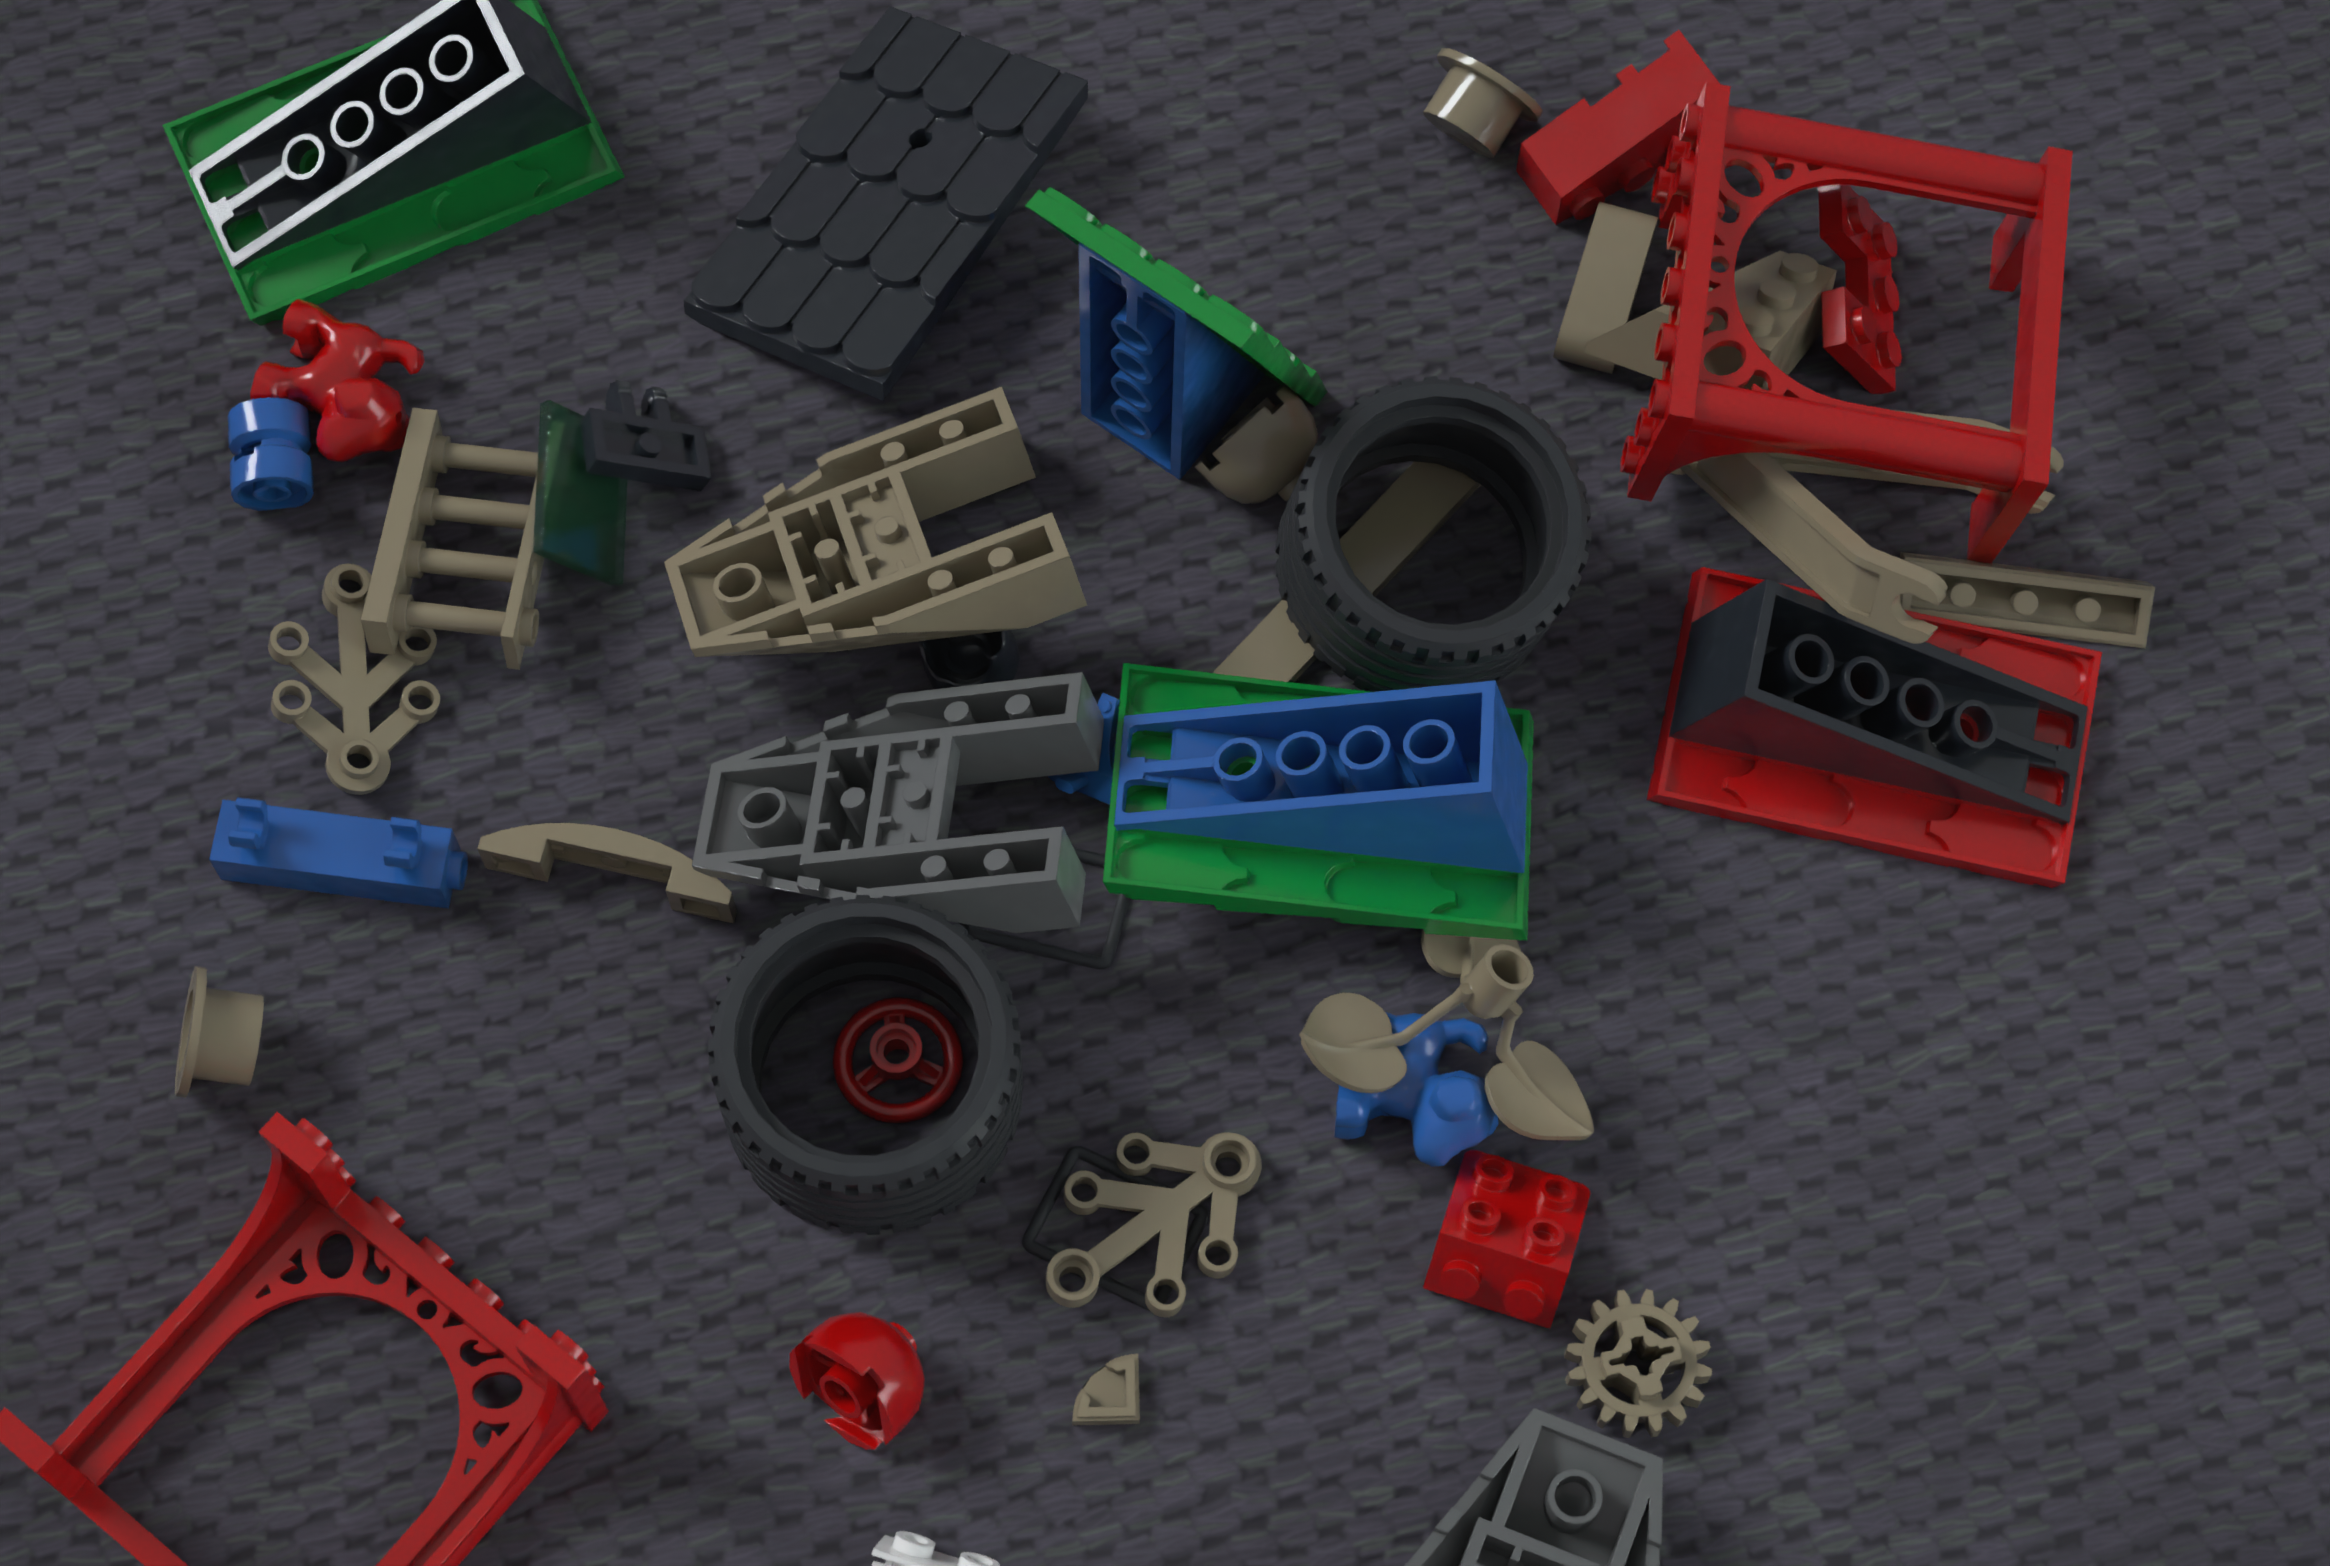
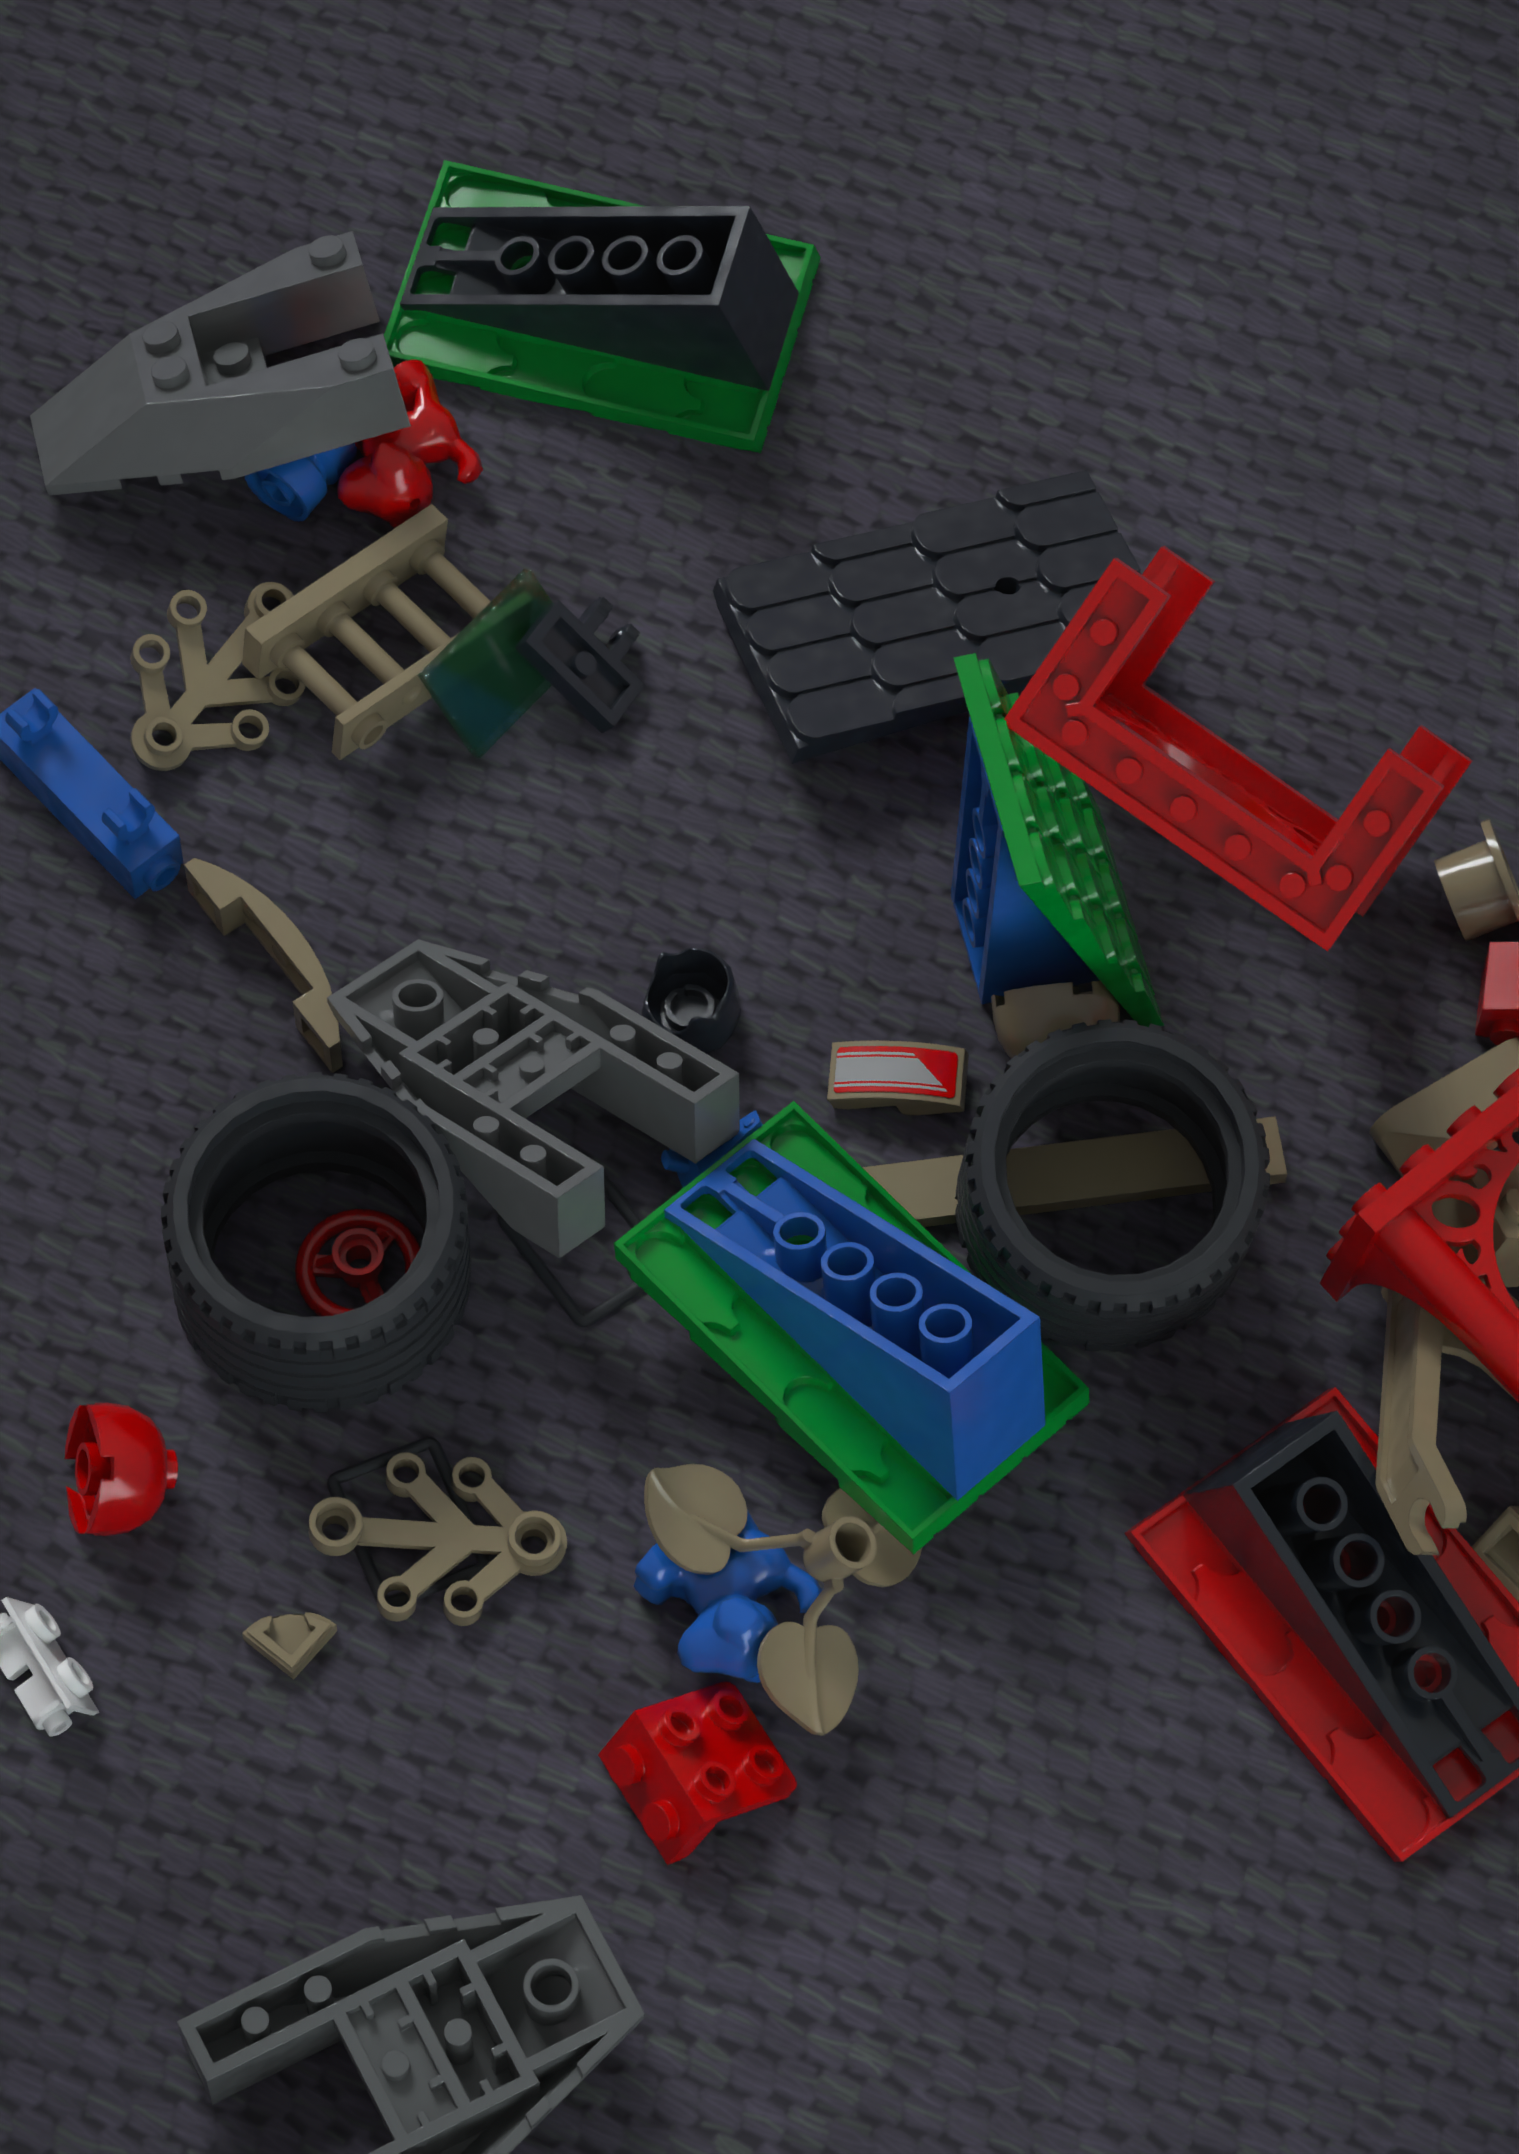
camera: 40 degrees right, 5 degrees down
(139, 465) = (198, 385): none -> dark grey wedge
(846, 555) = (650, 853): dark tan wedge -> none
(1114, 145) = (1197, 789): none -> red arch
(1172, 582) = (899, 1074): none -> slope
(1645, 1390) = (730, 1956): dark tan gear -> none

